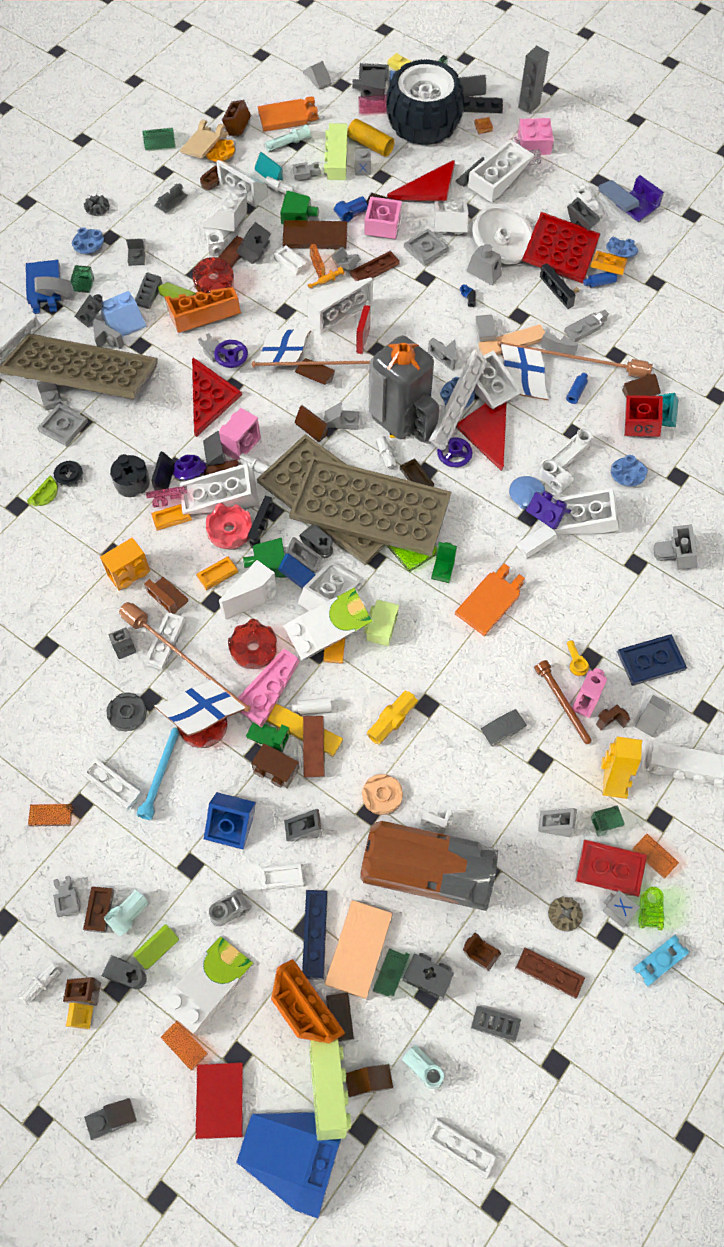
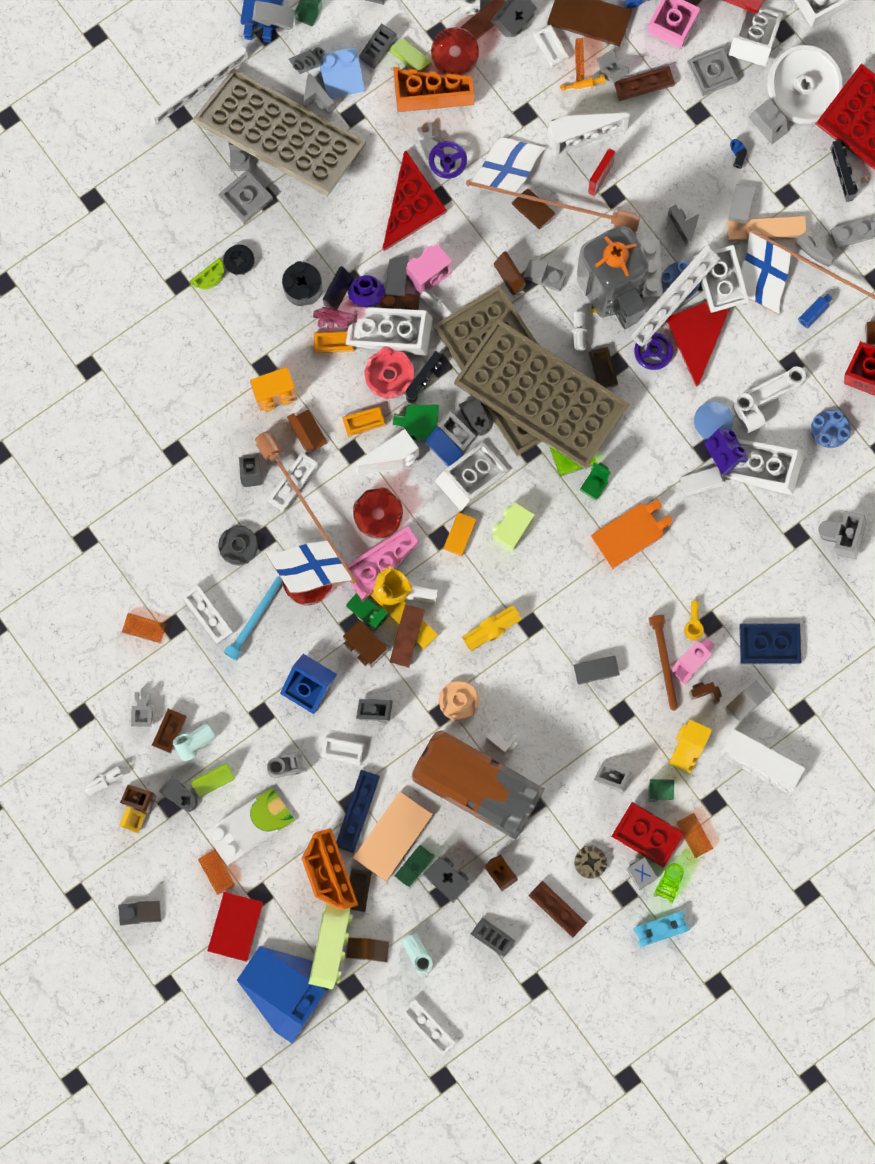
camera: 20 degrees right, 15 degrees up
(285, 703) = (391, 586): none -> yellow hair
(328, 623) = (456, 516): white slope -> none

